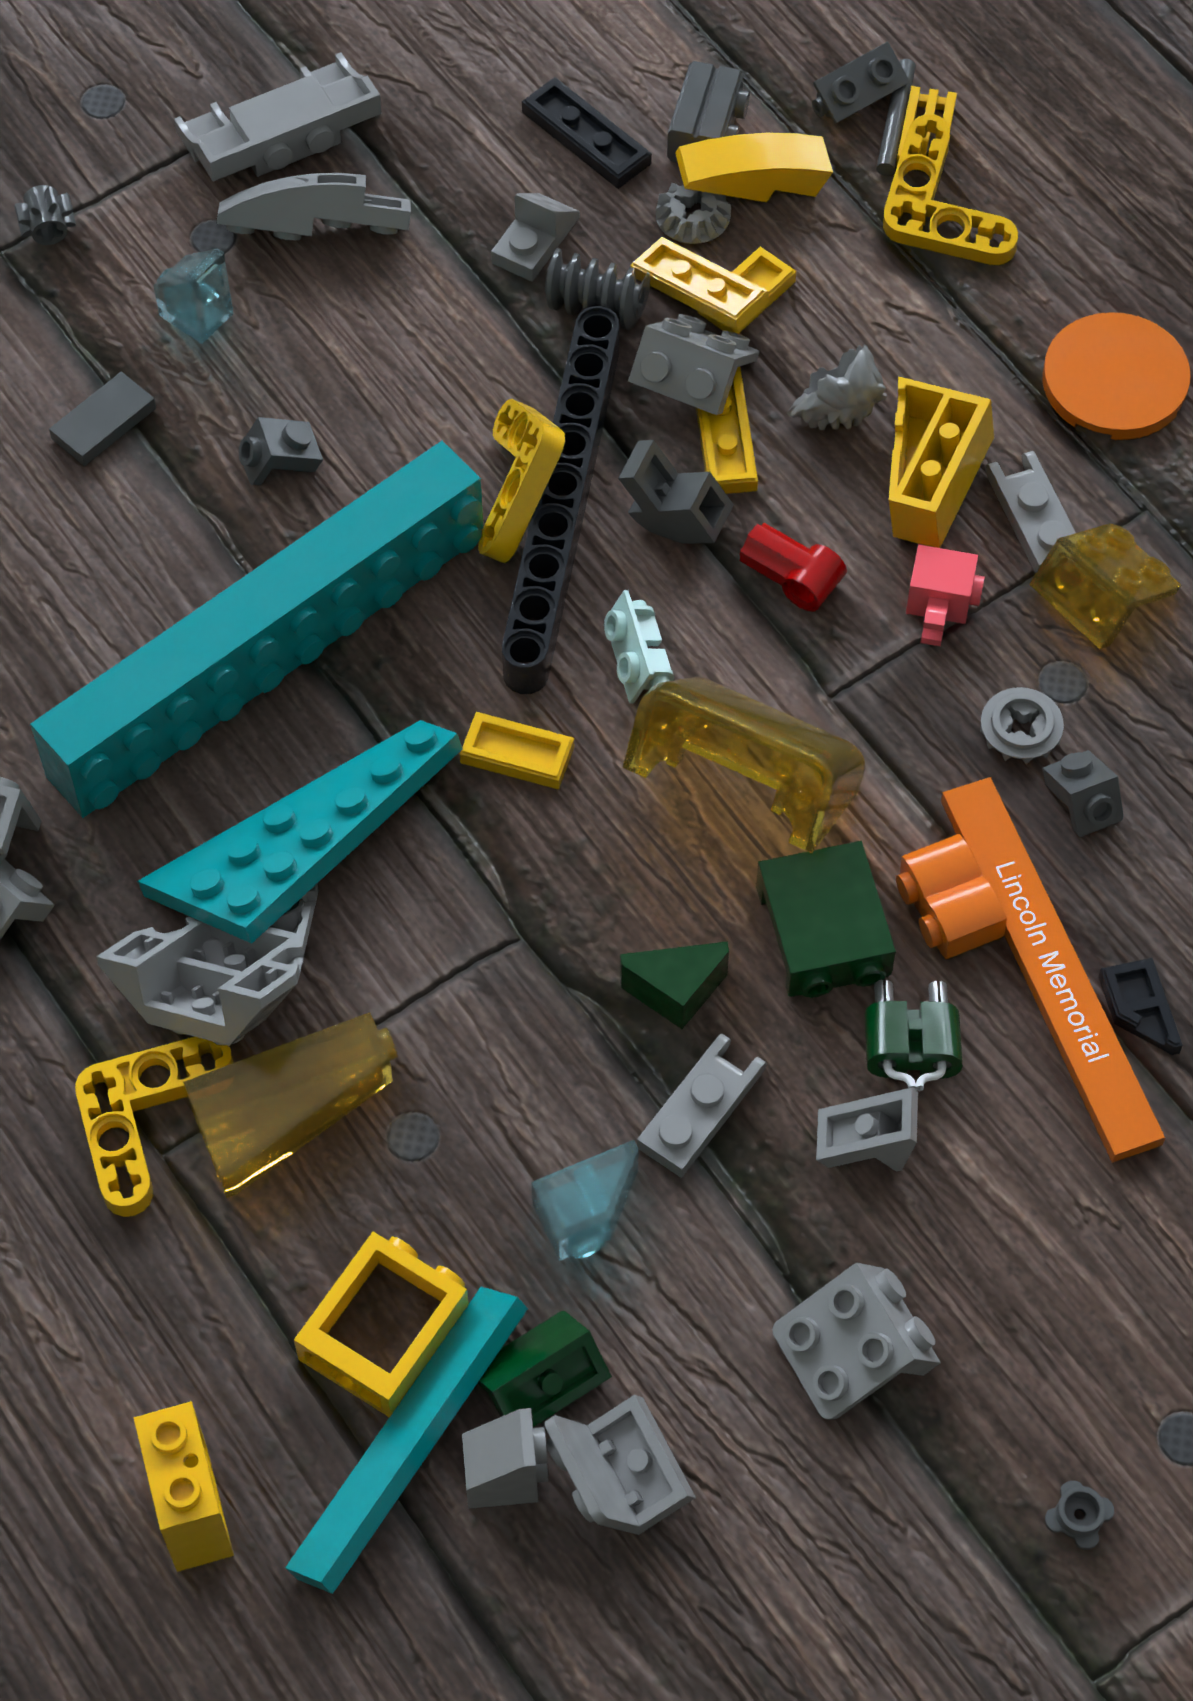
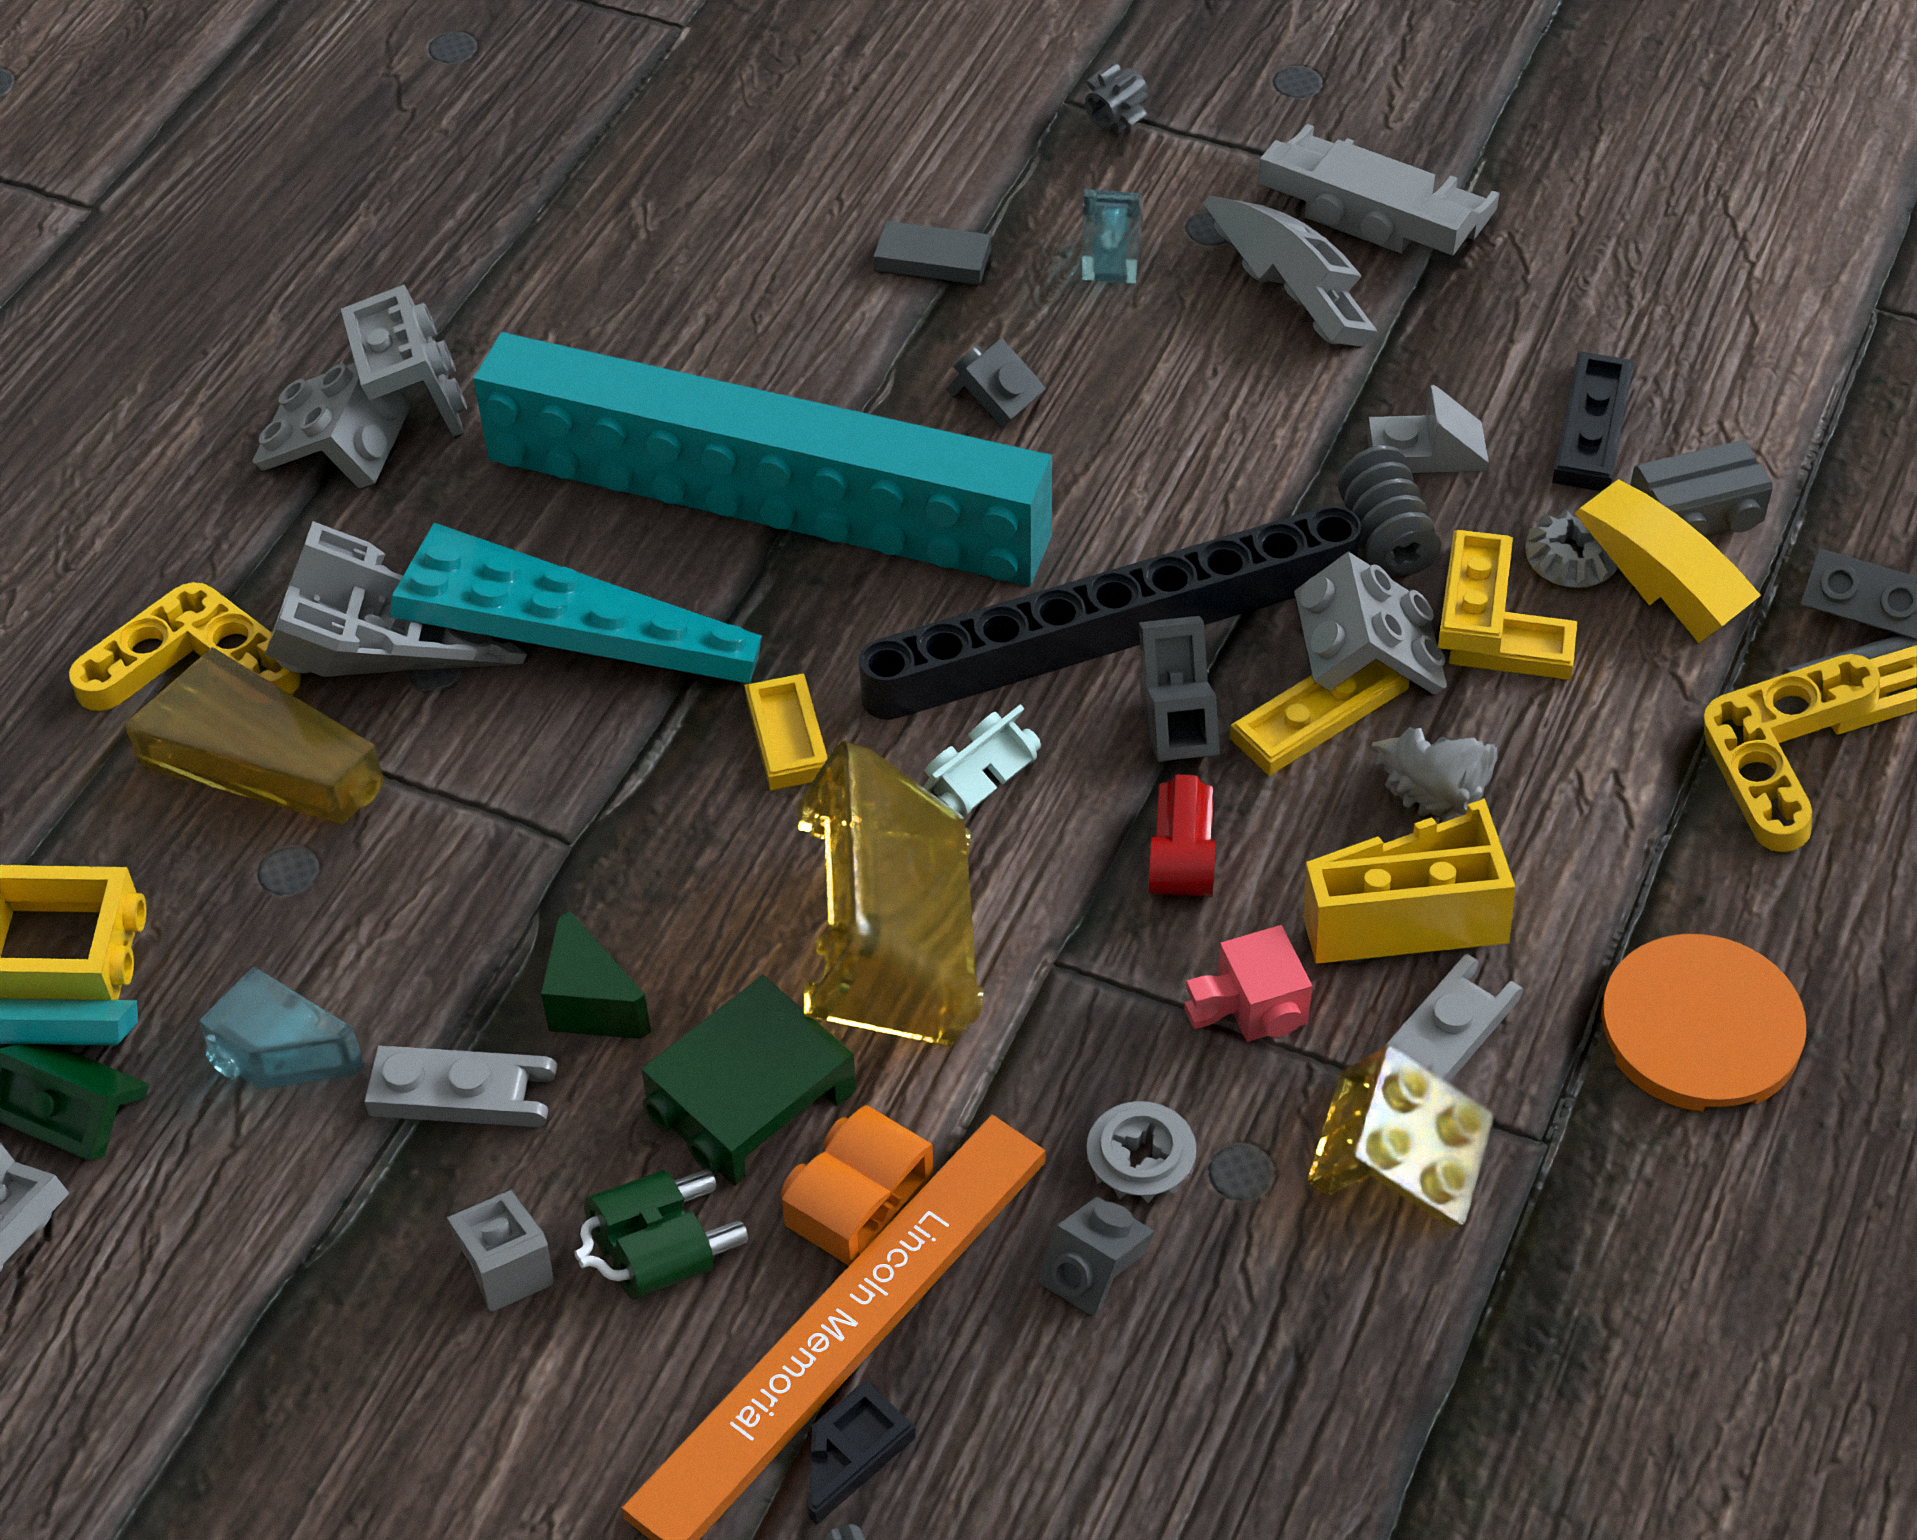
camera: 60 degrees right, 10 degrees down
(537, 449) = (1119, 541): yellow beam -> none
(854, 1339) = (248, 1359): light grey bracket -> none

